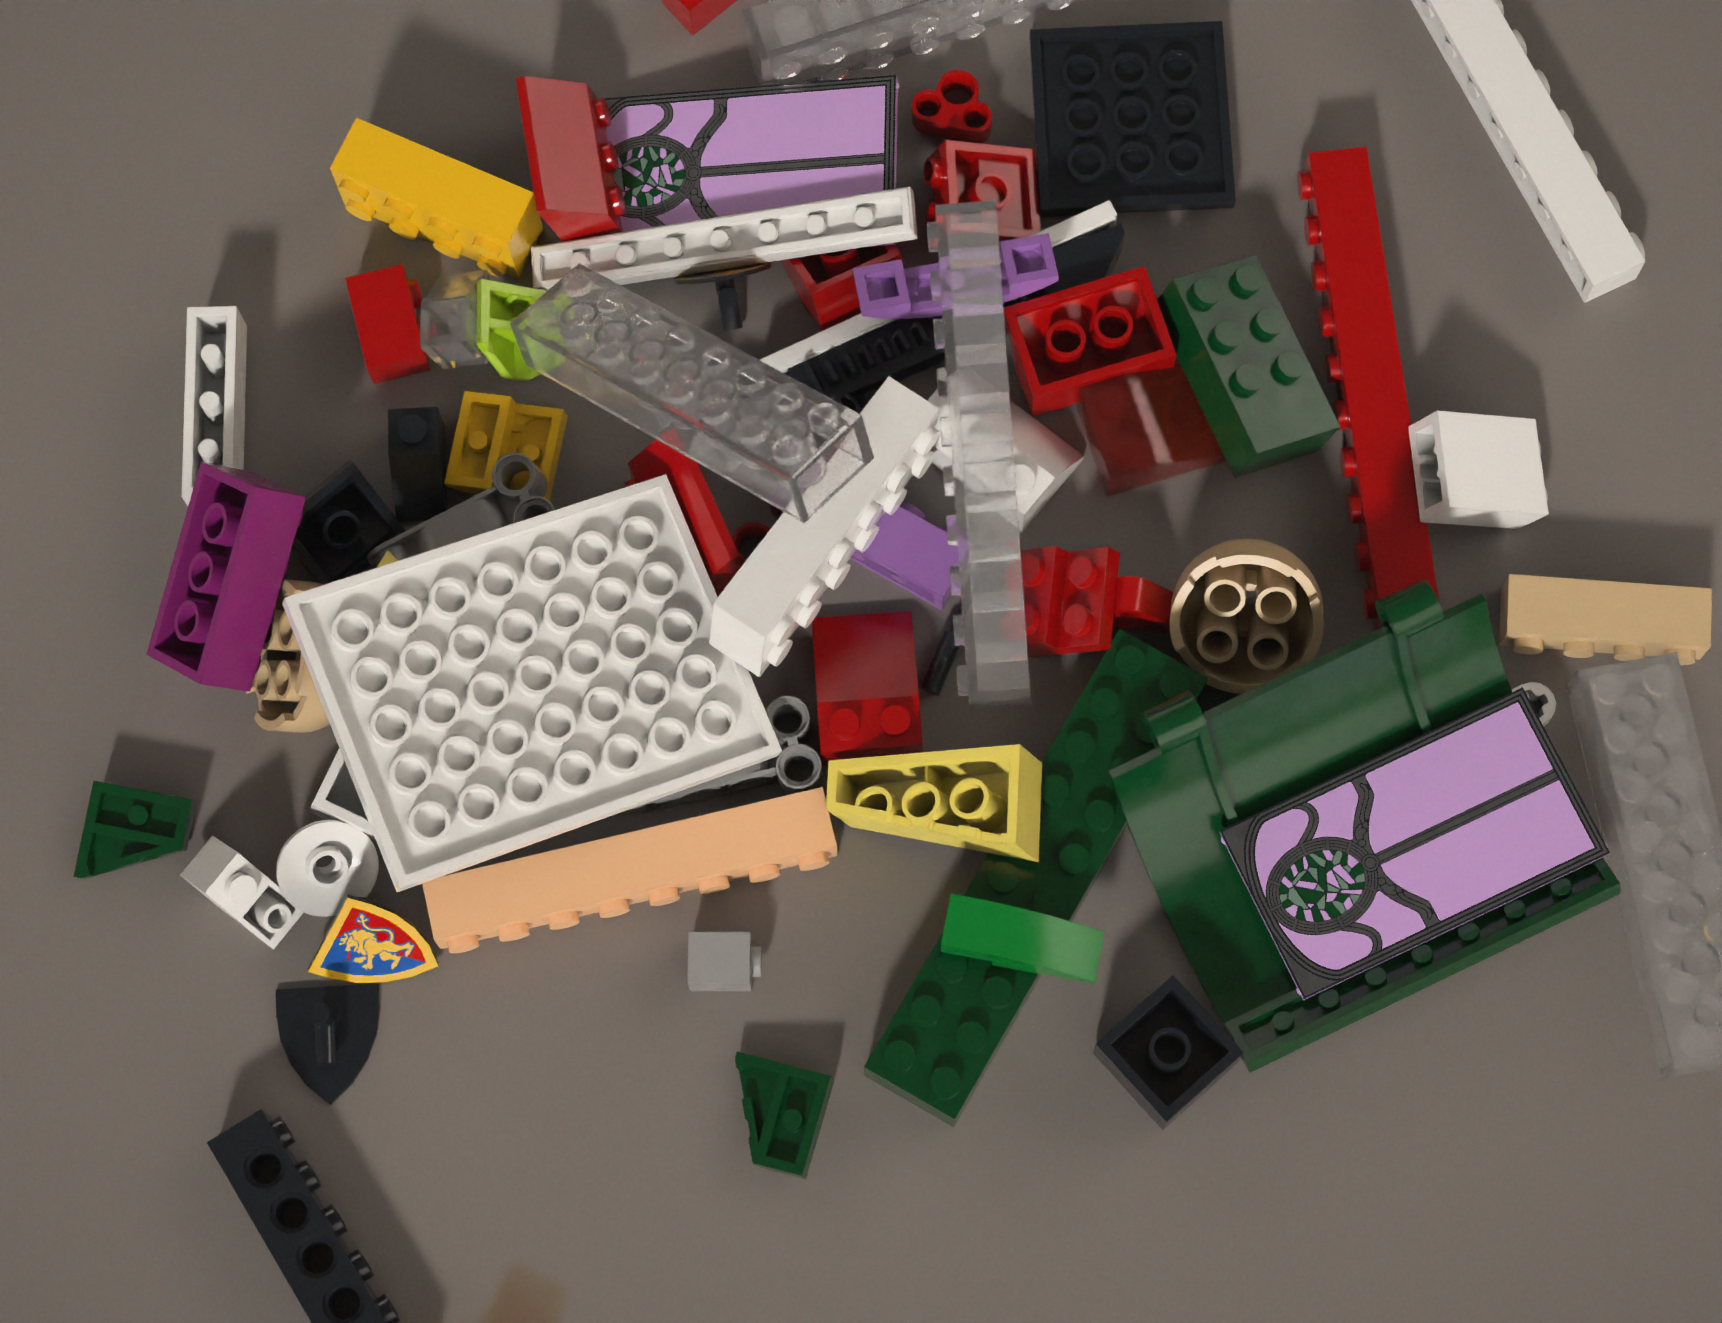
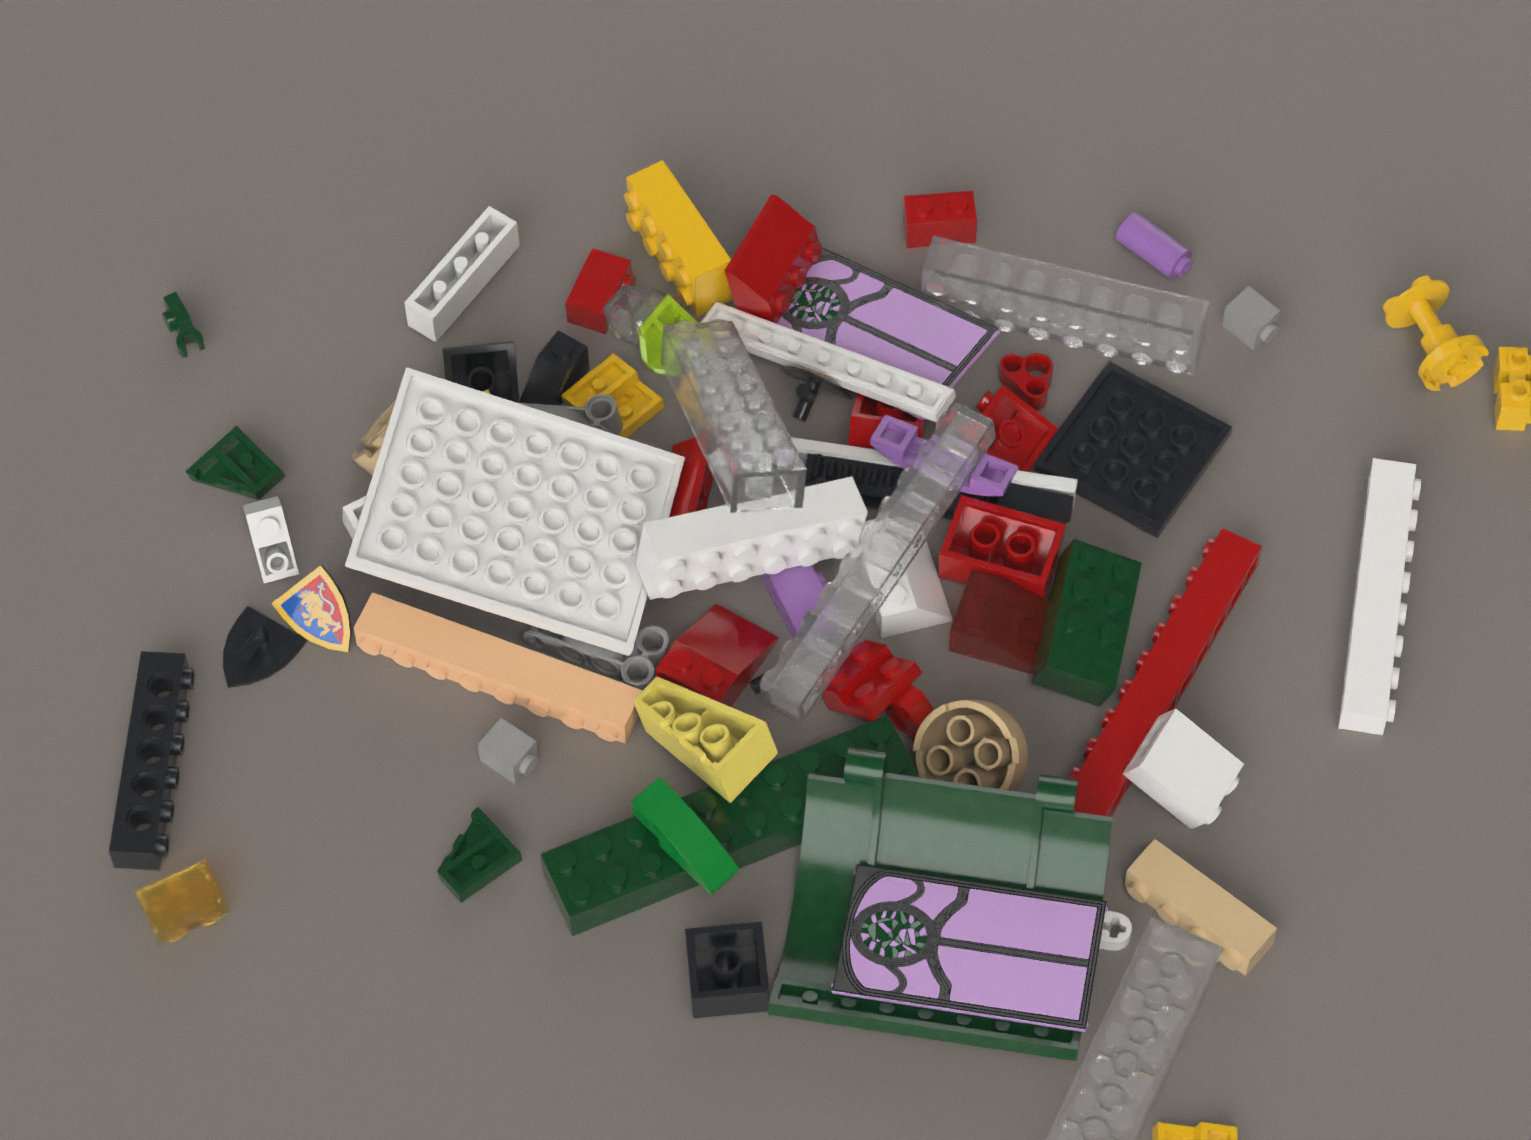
camera: 35 degrees right, 15 degrees down
(226, 576) = (373, 369): magenta brick -> none
(323, 889) = (309, 547): white dish -> none

